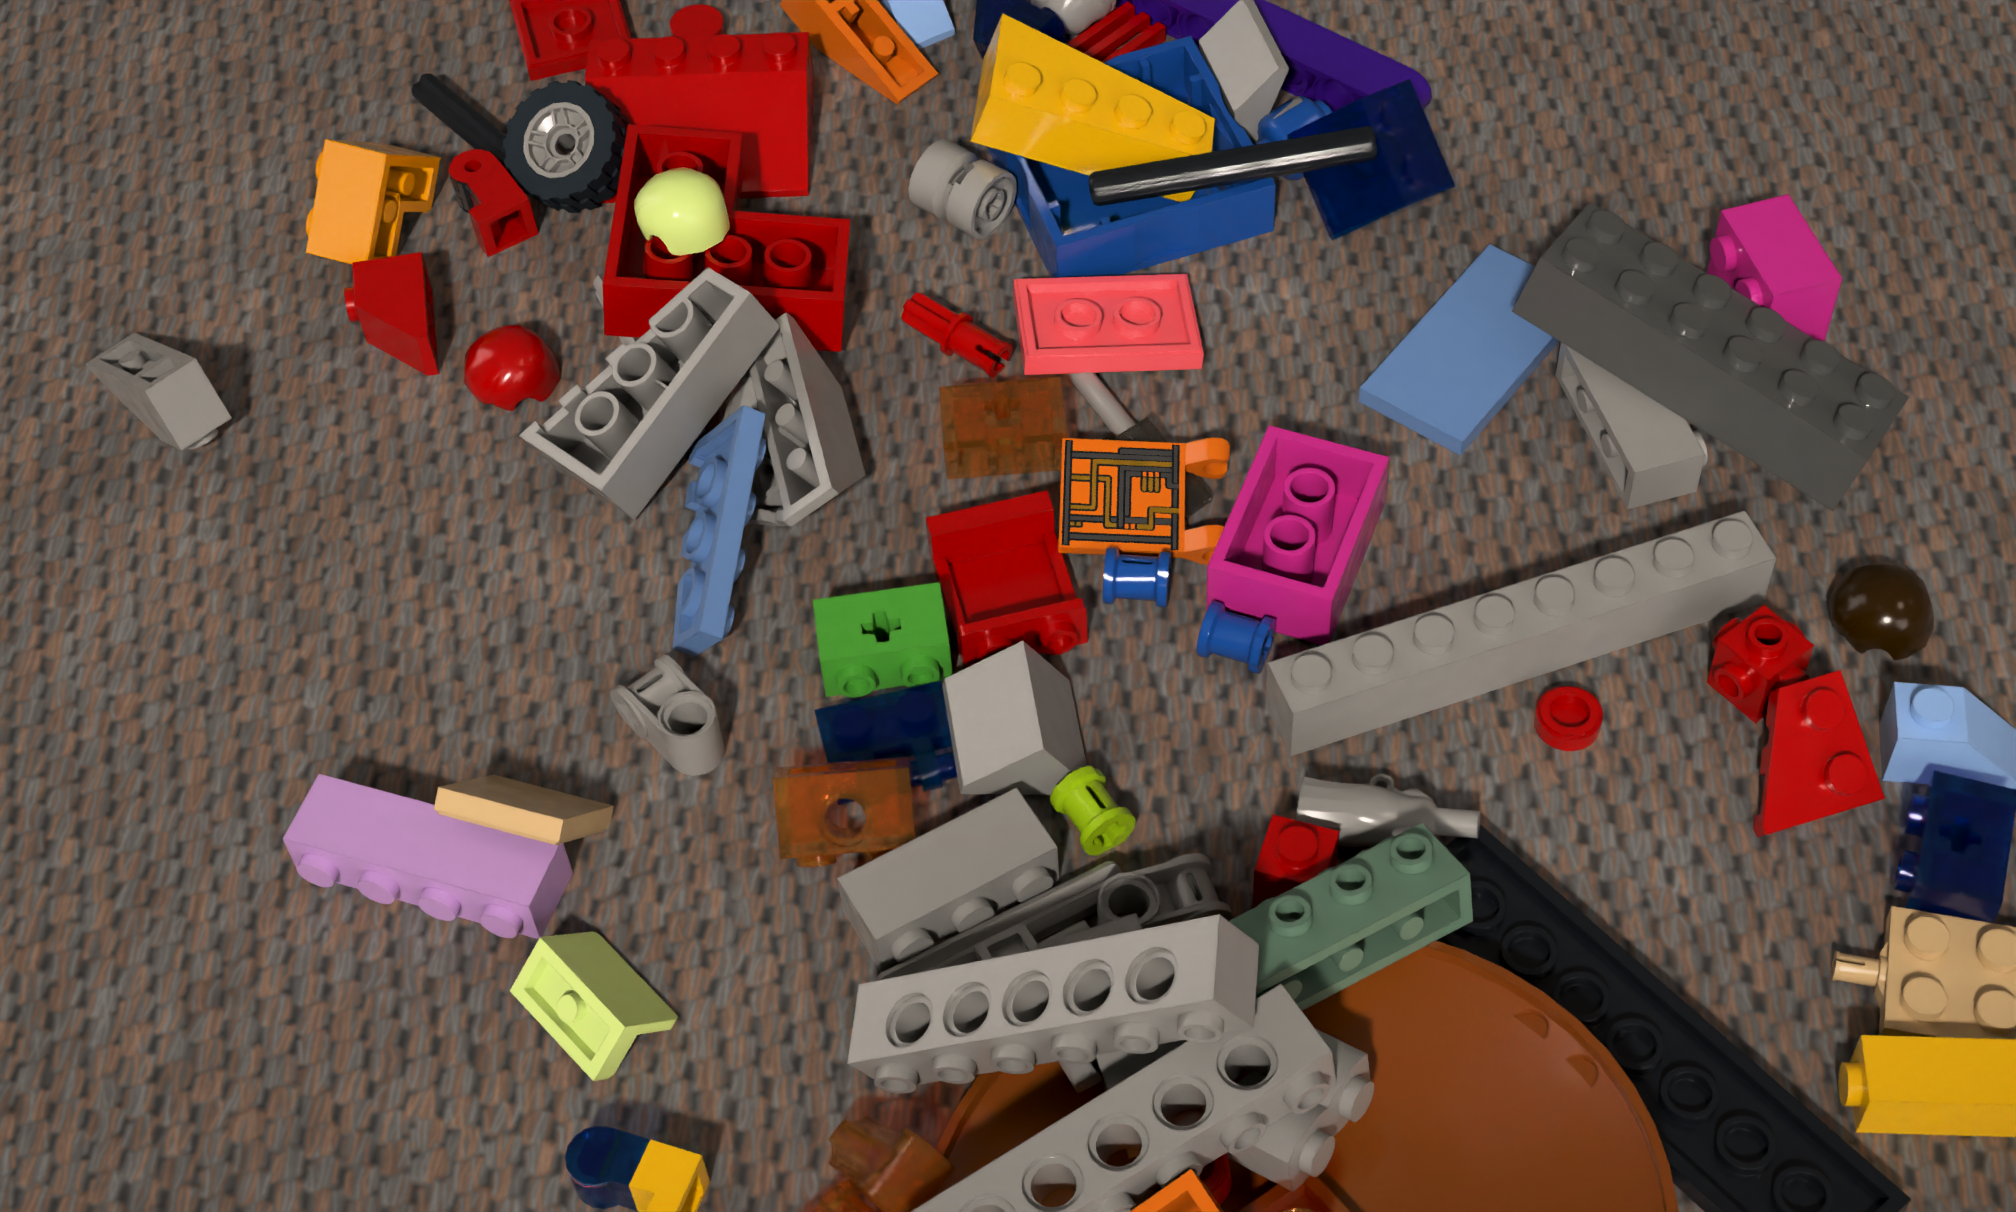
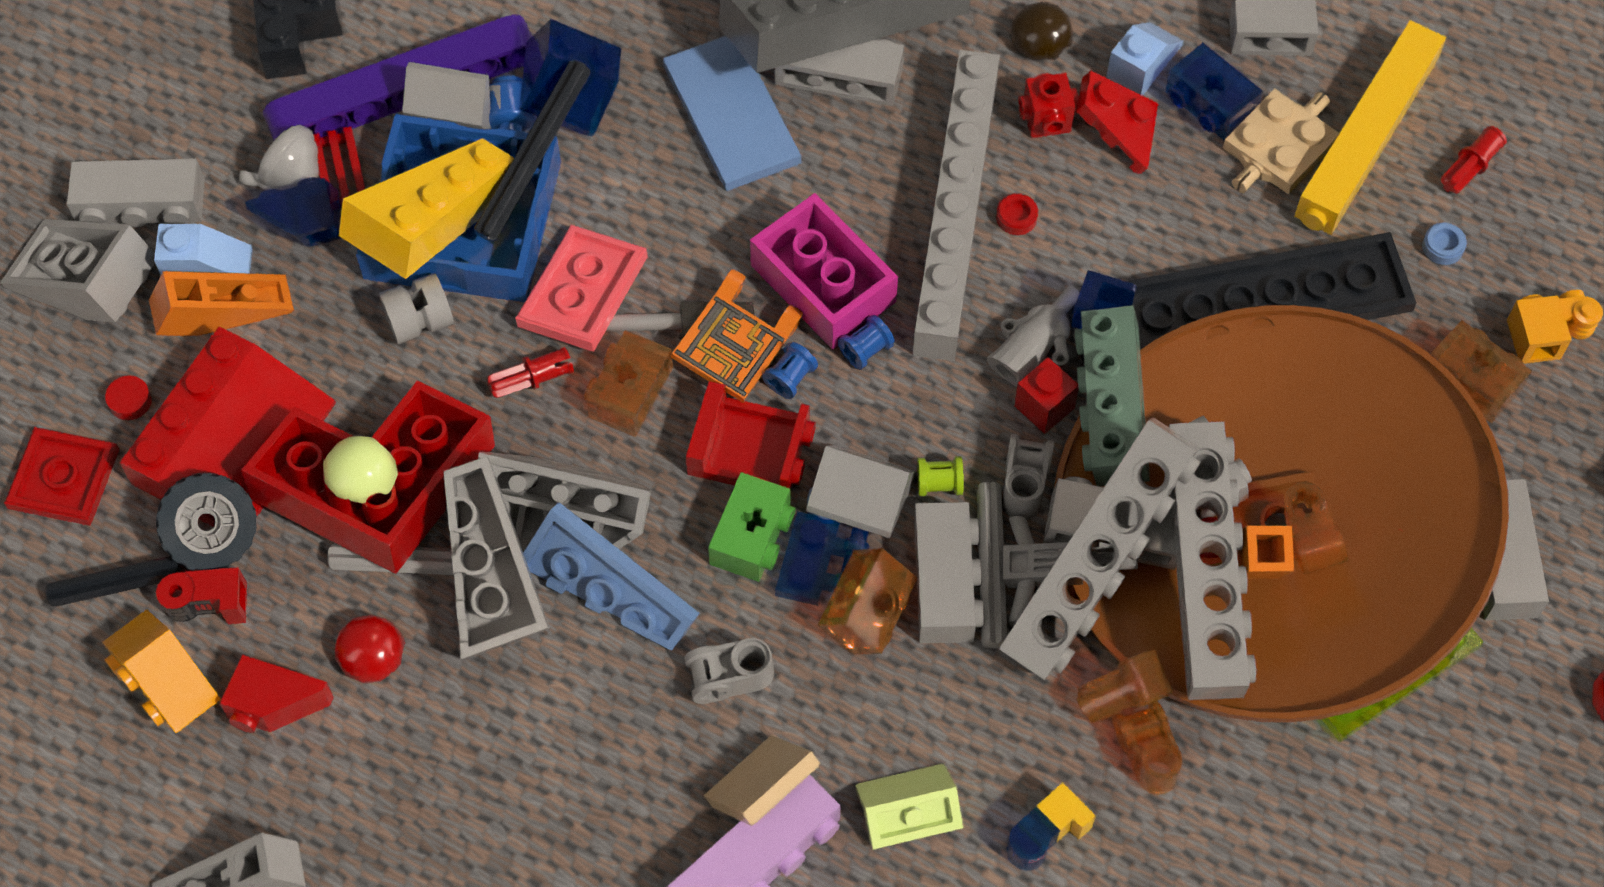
camera: 65 degrees left, 10 degrees up
(1485, 848) = (1102, 293): none -> clear blue panel

